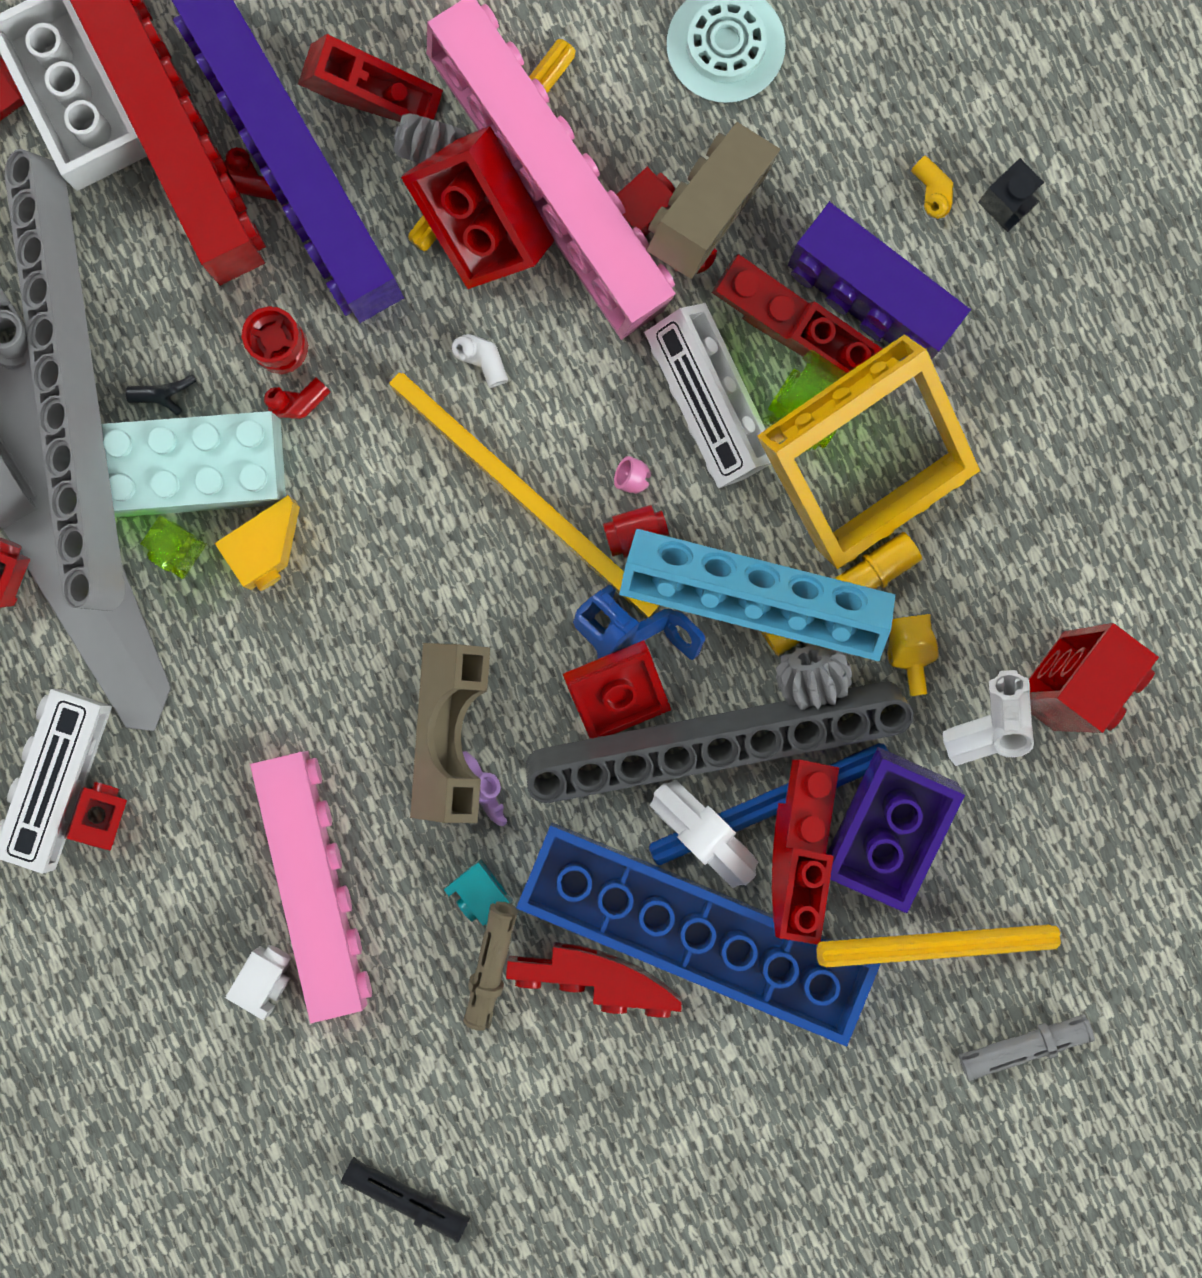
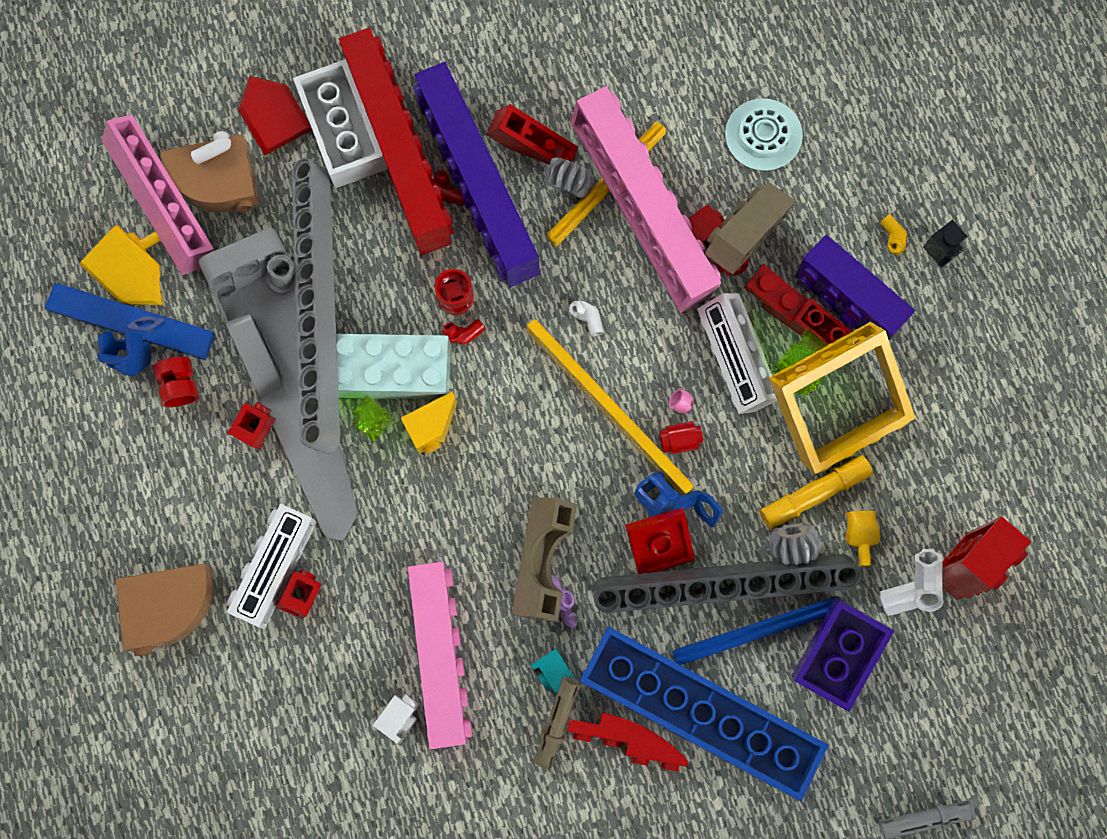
camera: 10 degrees right, 10 degrees down
(159, 393) = (373, 320): black bar -> none
(479, 209) = (596, 220): red slope -> none
(704, 833) = (713, 645): white piece -> none
(758, 595) = (762, 484): medium azure brick -> none
(799, 852) = (777, 662): red slope -> none
(937, 945) = (869, 737): yellow axle -> none

